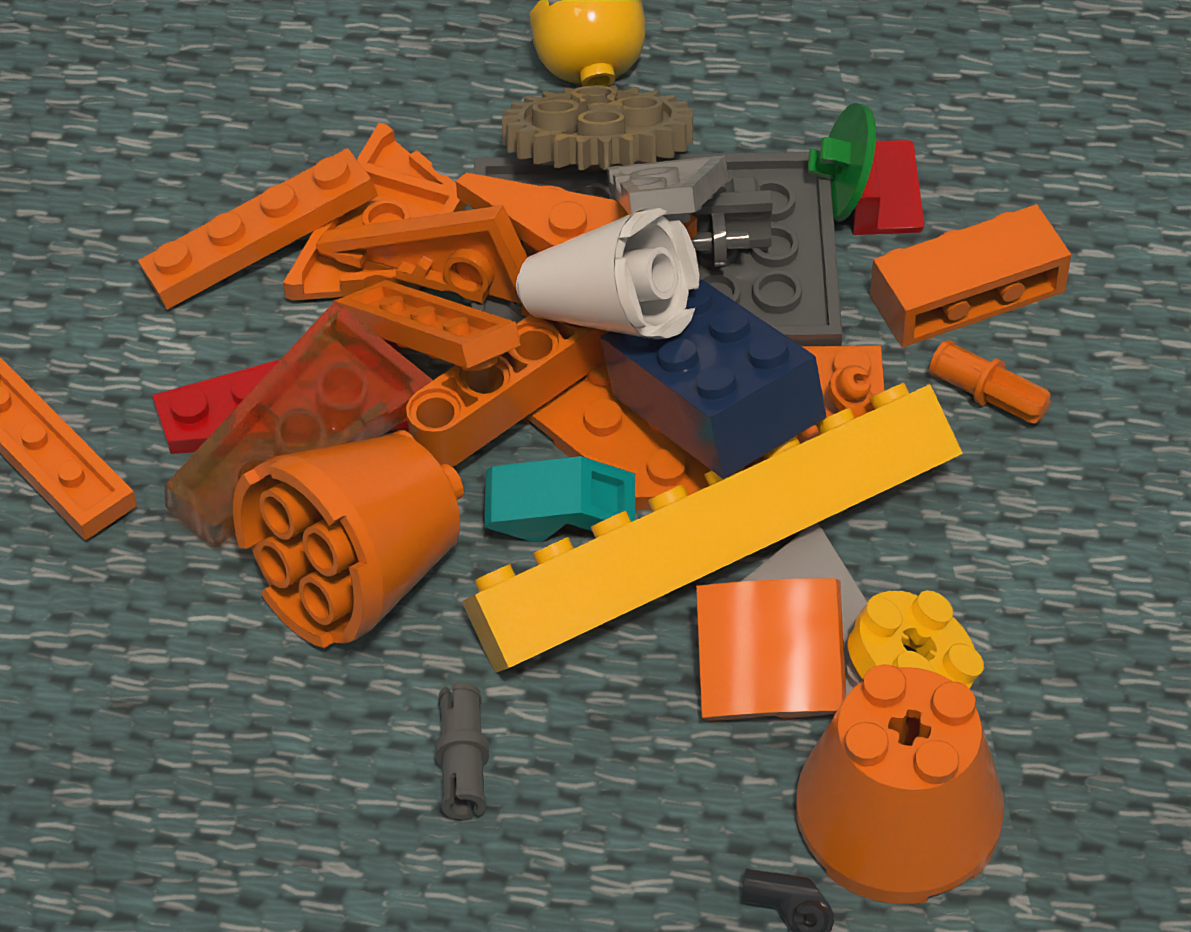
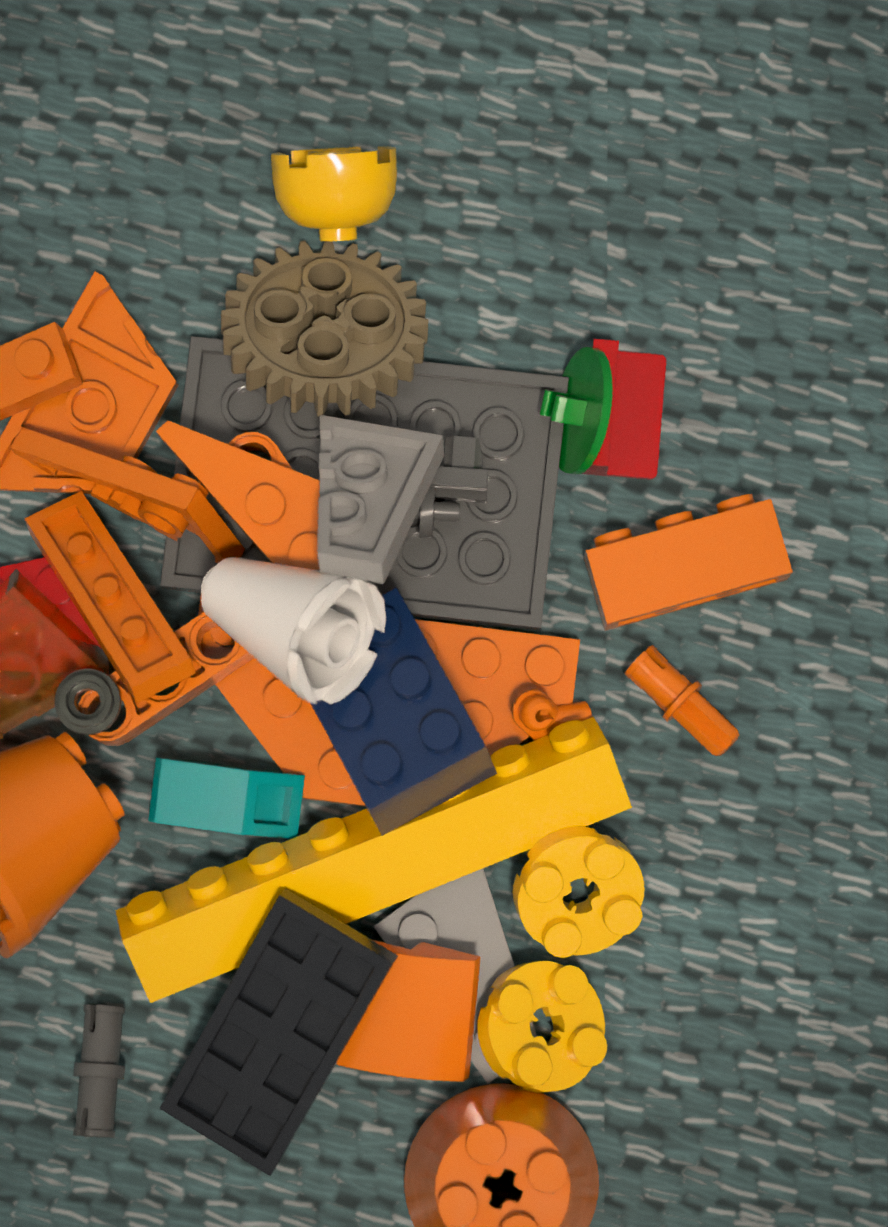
camera: 10 degrees right, 30 degrees up
(413, 378) = (69, 692): none -> pearl dark grey plate
(644, 674) = (278, 1031): none -> black plate
(947, 503) = (586, 926): none -> yellow plate

